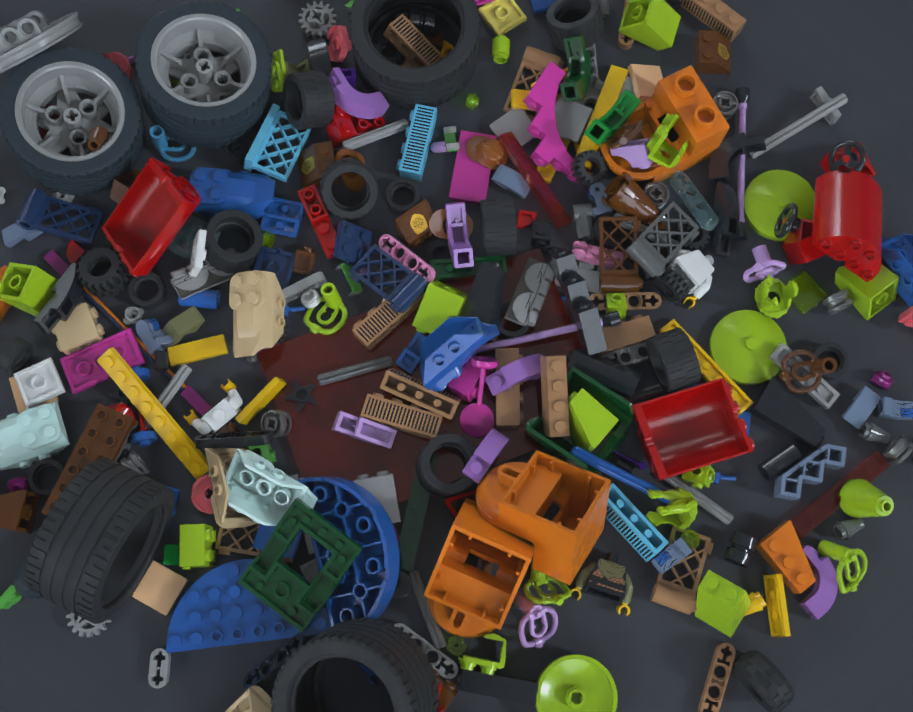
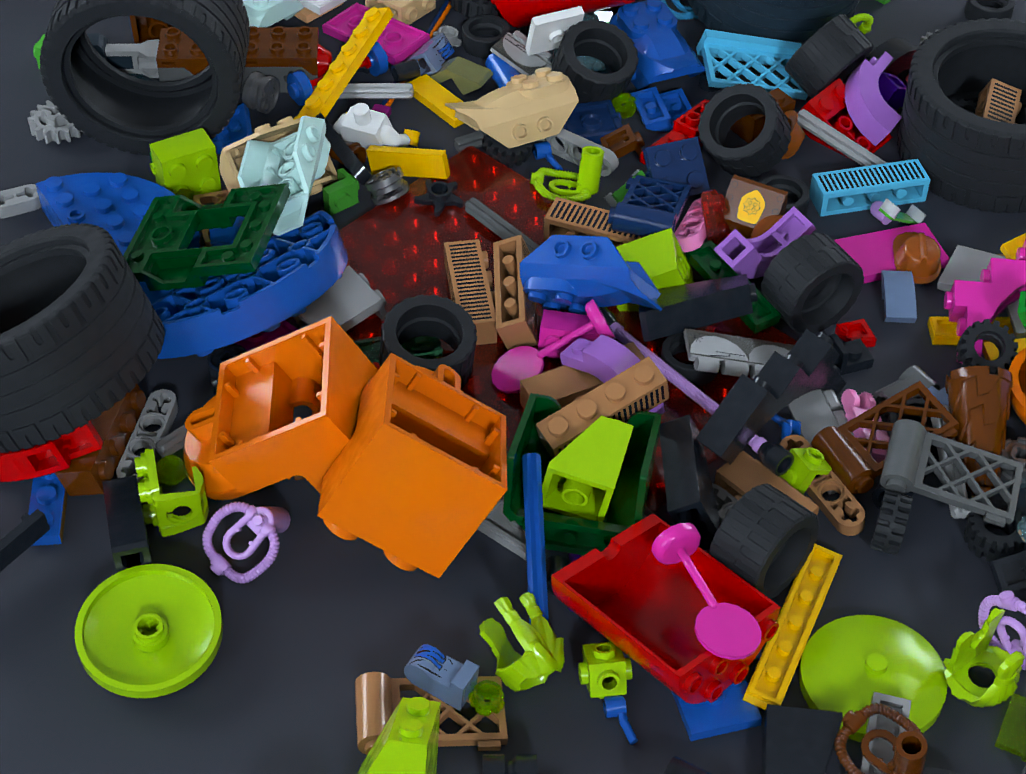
camera: 65 degrees right, 30 degrees down
(160, 588) = (121, 160): light nougat tile -> none
(310, 298) = (571, 165): white tile -> none
(364, 430) = (428, 260): lavender slope -> none
(409, 245) = (713, 207): none -> clear red plate
(472, 101) = (976, 219): clear neon green plate -> none
(485, 455) = (477, 369): medium lavender arch -> none
(534, 180) = (918, 314): clear red tile -> none
(538, 578) = (317, 532): lime piece -> none
(607, 581) = (356, 610): torso -> none
(633, 525) = (471, 597): medium azure brick -> none
(695, 270) = (934, 545): white torso -> none
(702, 500) = (565, 700): light grey axle -> none
(730, 411) = (719, 627): none -> dark pink piece

